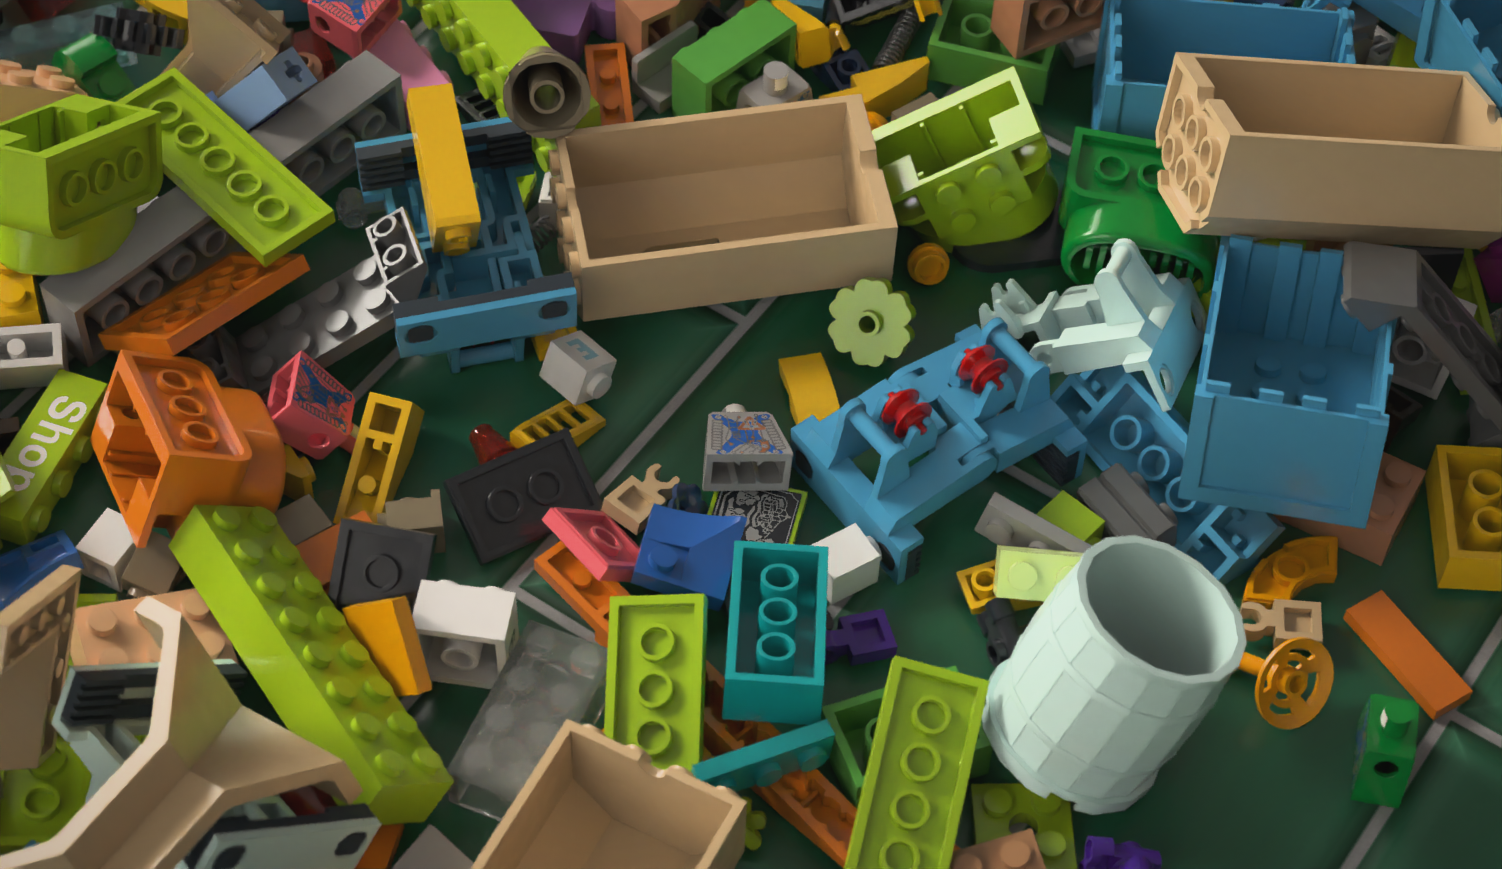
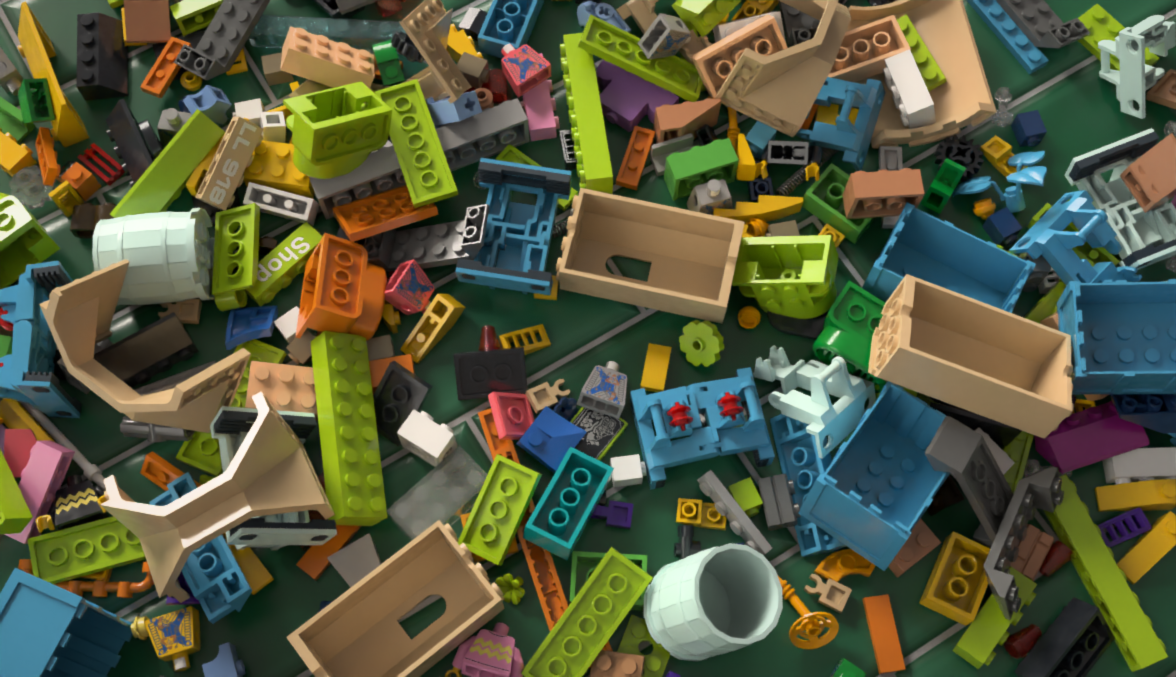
camera: 25 degrees right, 15 degrees up
(392, 643) = (387, 435): light orange tile -> none
(417, 515) = (434, 367): dark tan brick -> none
(443, 169) = (514, 191): yellow slope -> none
(546, 93) = (582, 165): dark tan cone -> none
(578, 368) = (547, 312): white brick -> none
(769, 759) = (530, 570): teal plate -> none
(1030, 571) = (713, 524): yellowish green brick -> none

